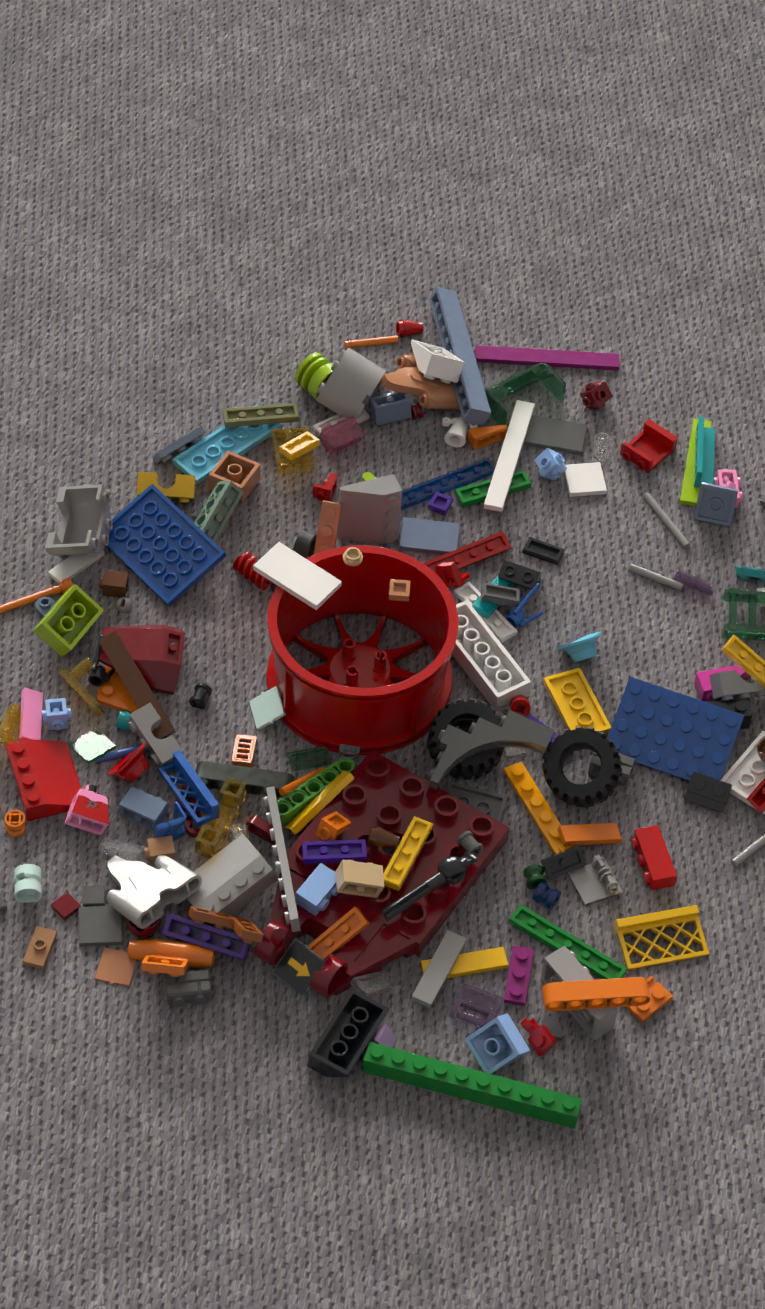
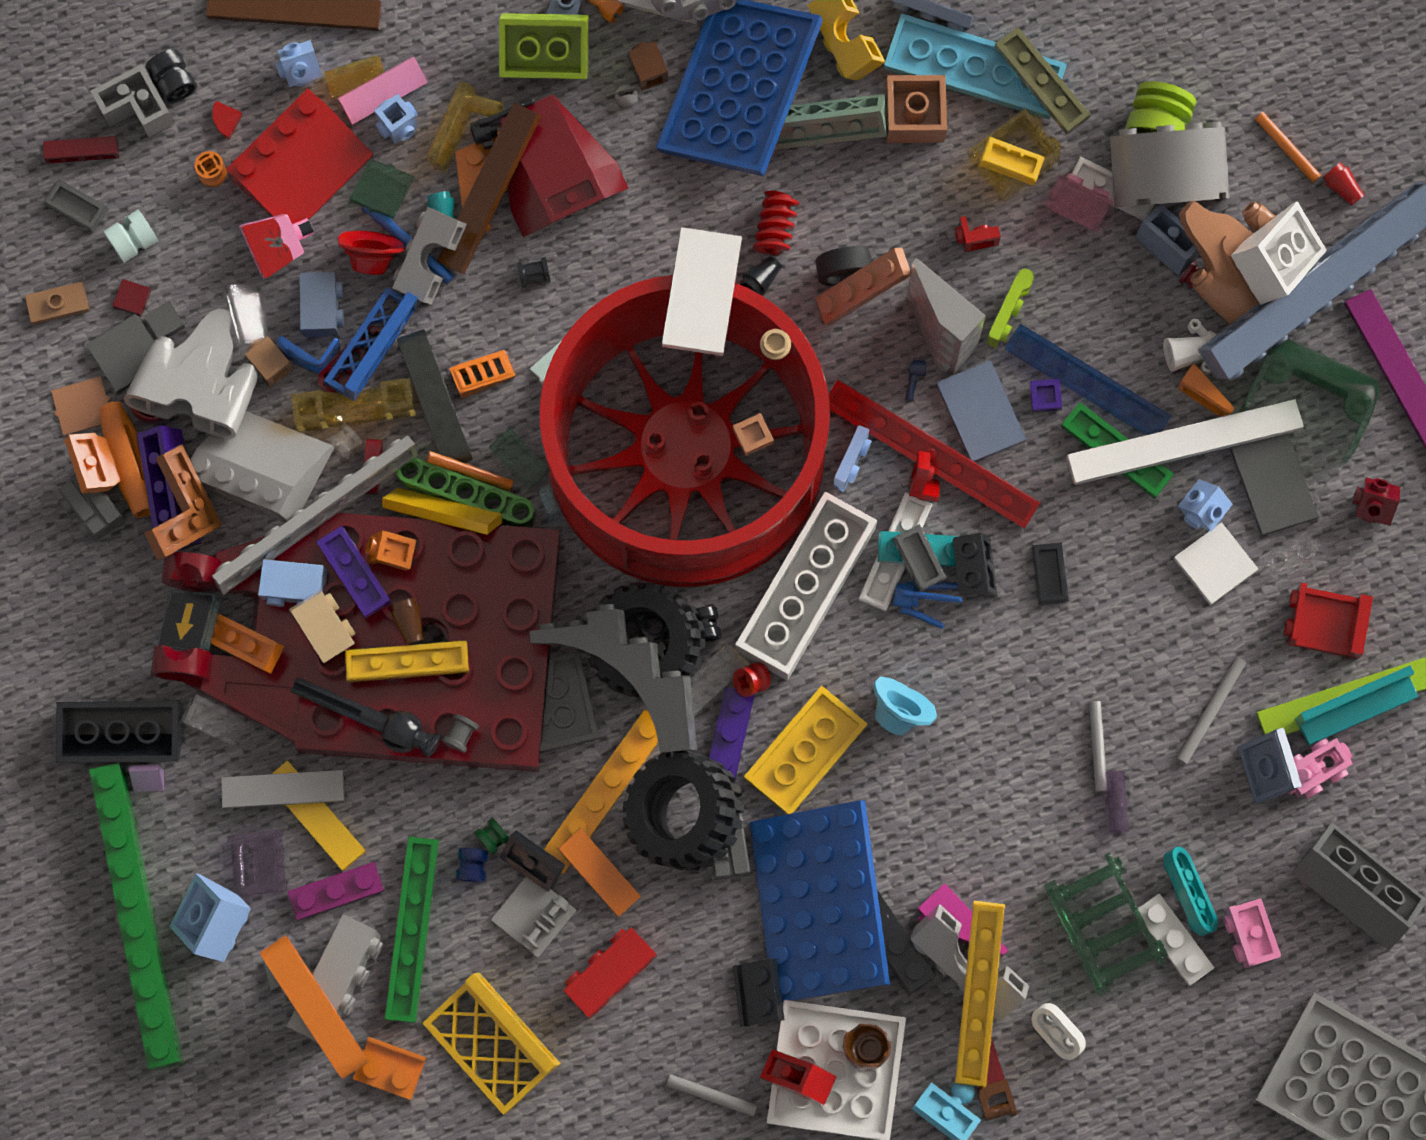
camera: 65 degrees right, 25 degrees up
(541, 1038) = (251, 966): red plate -> none

